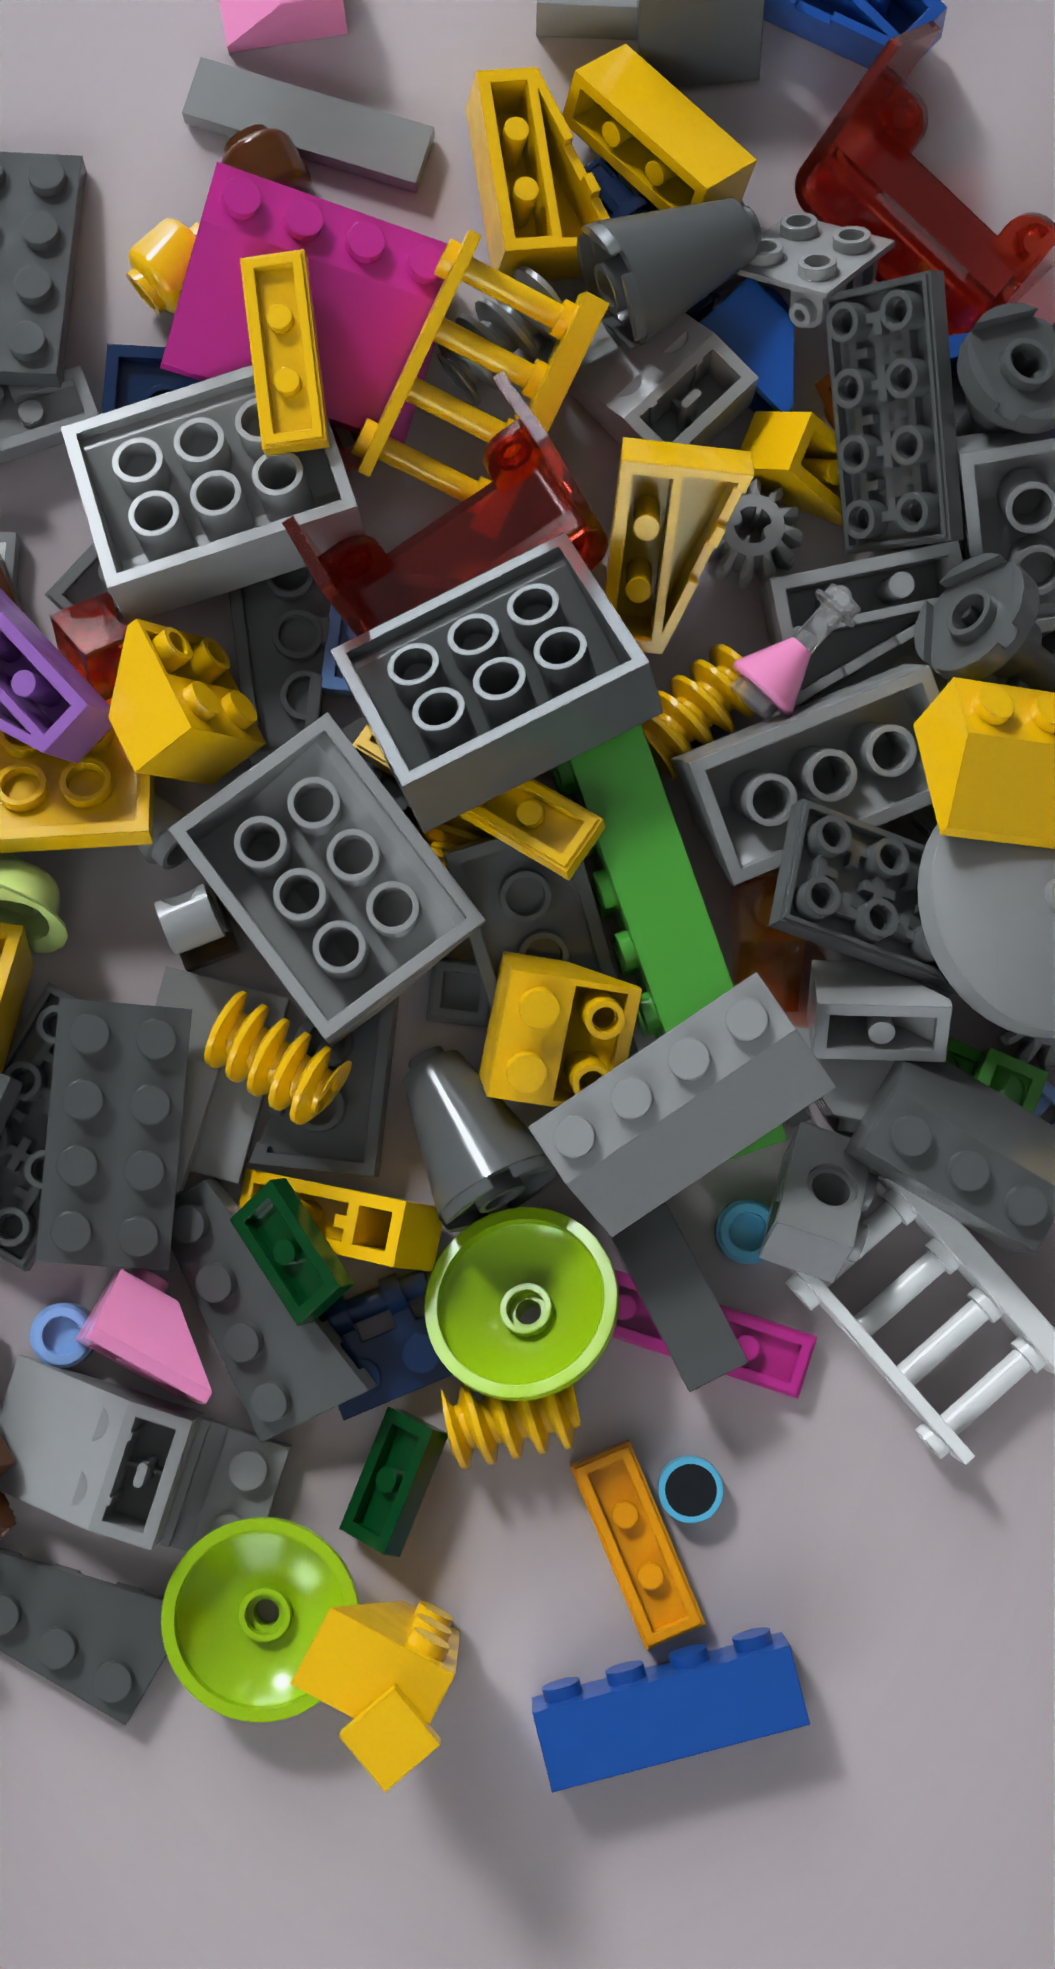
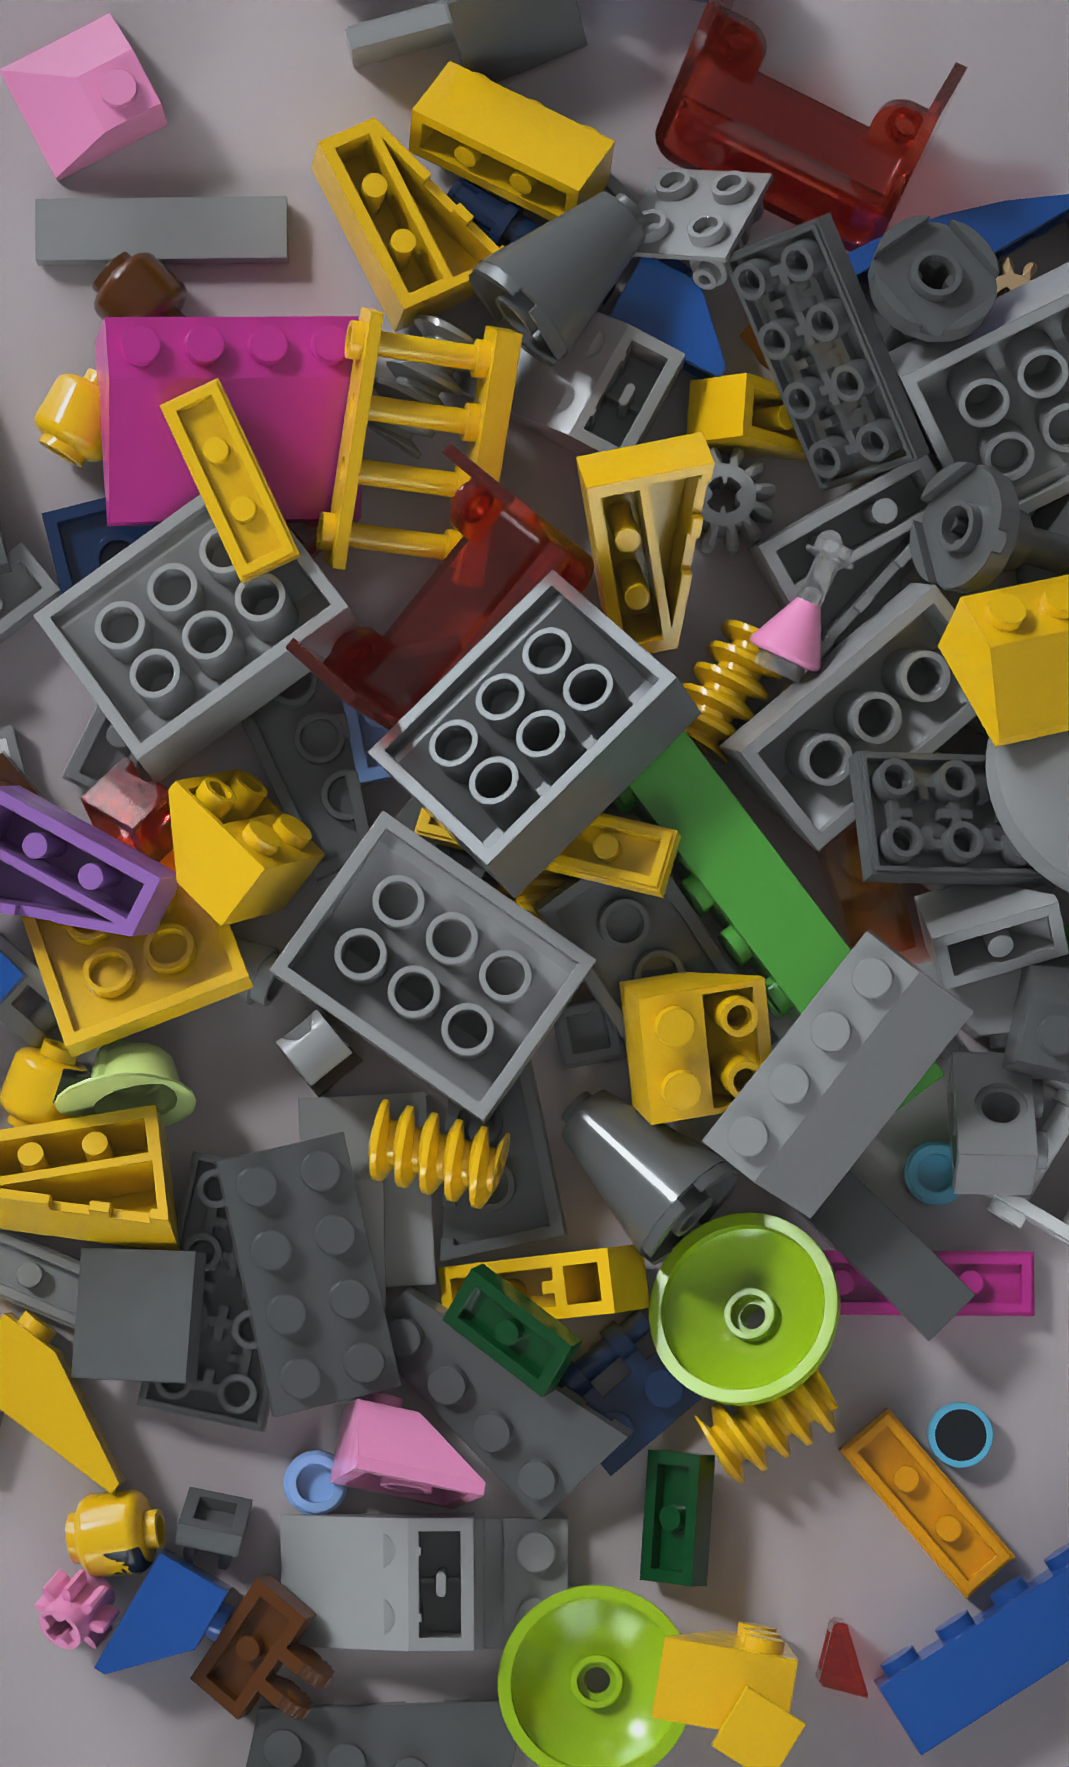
camera: 15 degrees left, 0 degrees up
(501, 1673) = (838, 1661): none -> clear red slope

